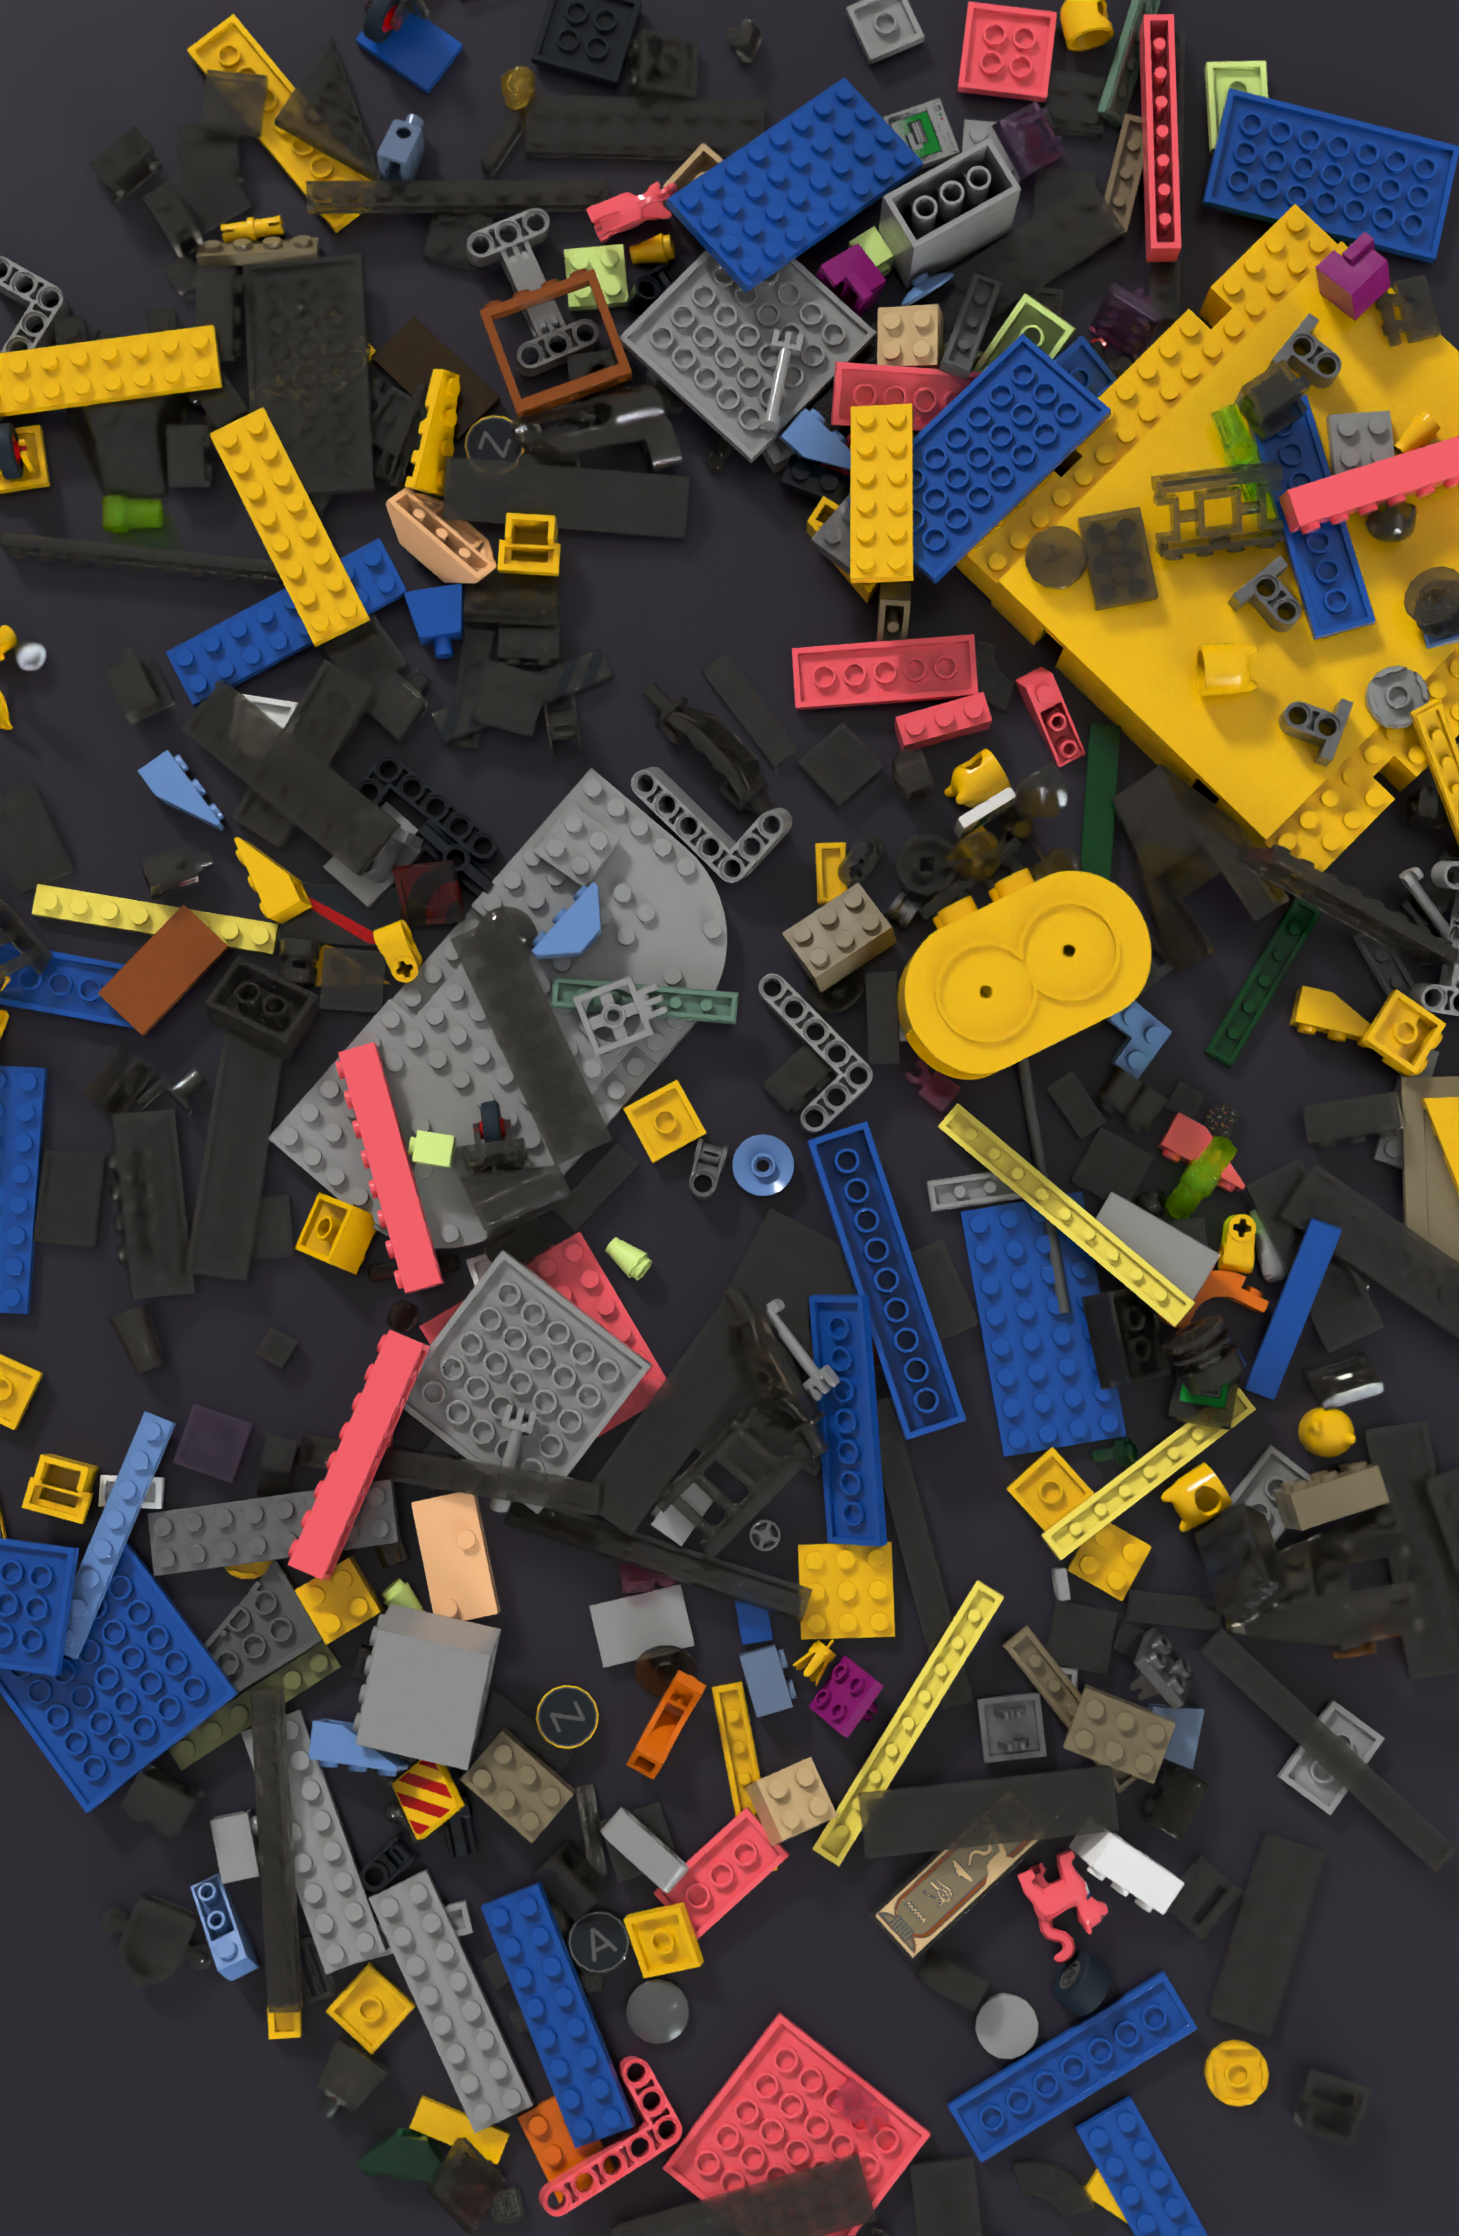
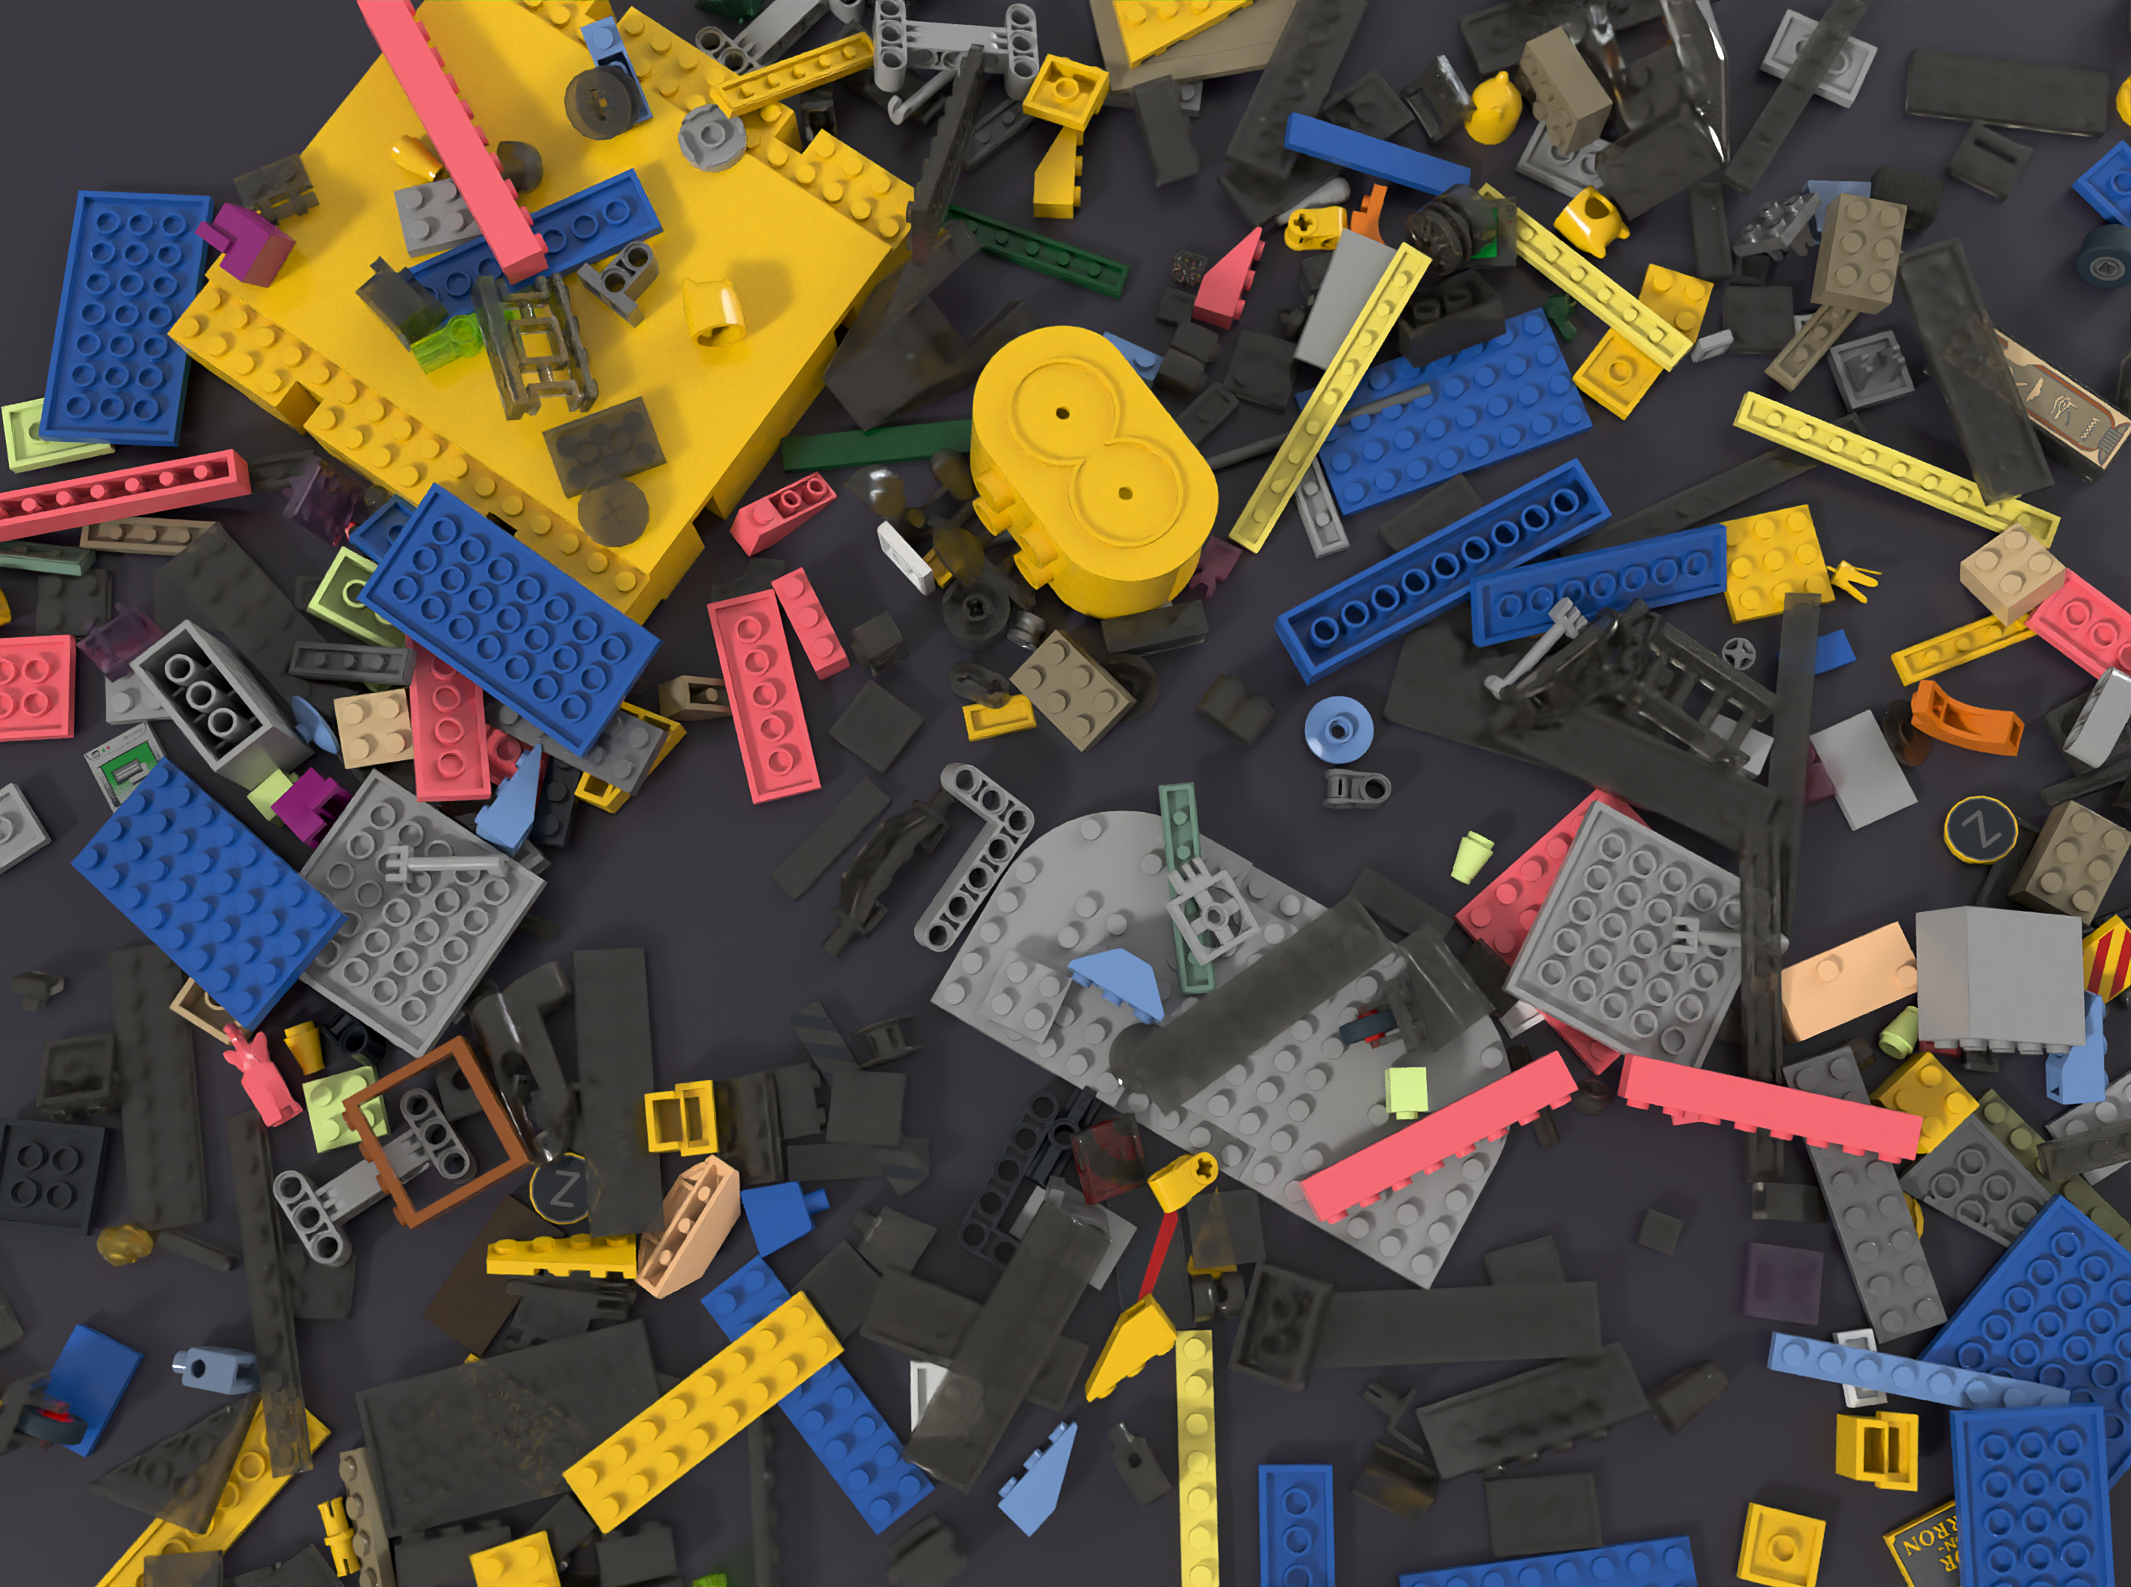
camera: 100 degrees left, 5 degrees down
(163, 970) = (1259, 1455): dark orange tile -> none
(337, 1233) = (1518, 1190): yellow slope -> none
(665, 1121) = (1312, 846): yellow plate -> none
(766, 1679) = (1888, 626): sand blue brick -> none
(821, 1047) = (1196, 689): light grey beam -> none
(847, 1697) = (1887, 538): magenta plate -> none
(881, 494) = (566, 718): yellow plate -> none
(977, 780) = (870, 573): yellow piece -> none
(1058, 1896) = (2028, 292): coral animal -> none
(1128, 1869) = (1989, 224): white wedge -> none
(1200, 1177) = (1260, 269): clear neon green piece -> none
(1309, 731) = (760, 217): flat silver tile -> none
(1317, 355) = (338, 277): flat silver tile -> none

